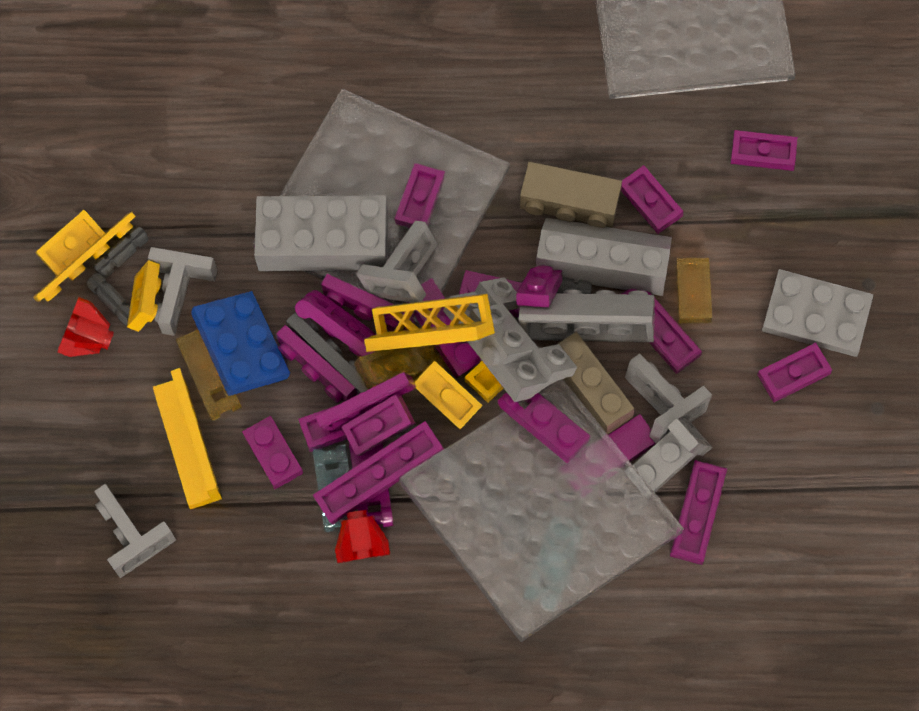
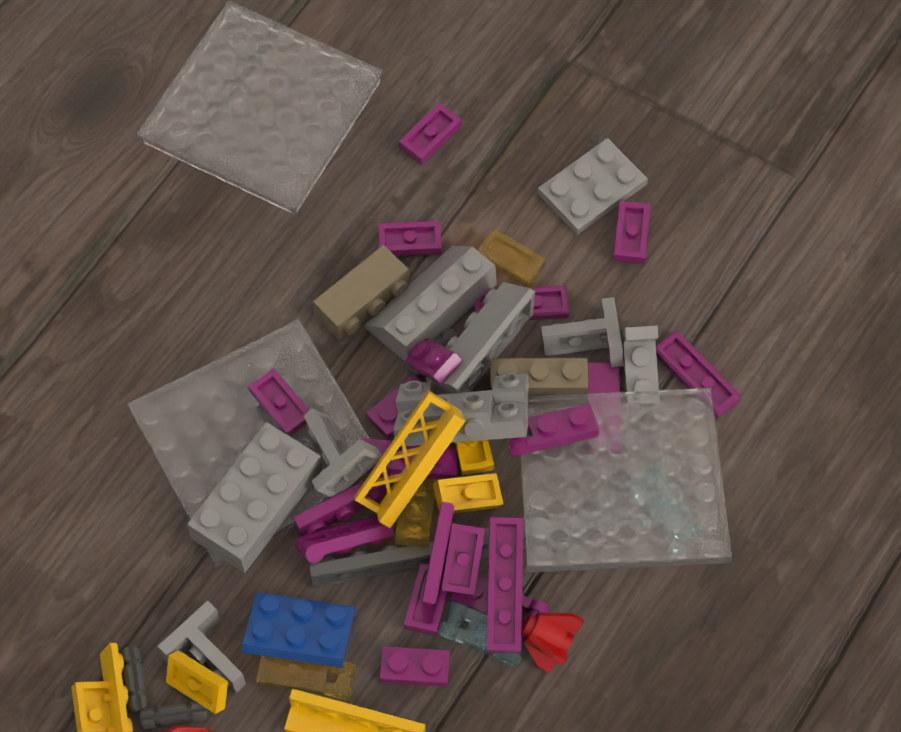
camera: 60 degrees left, 5 degrees down
(315, 366) = (366, 581): magenta plate -> none

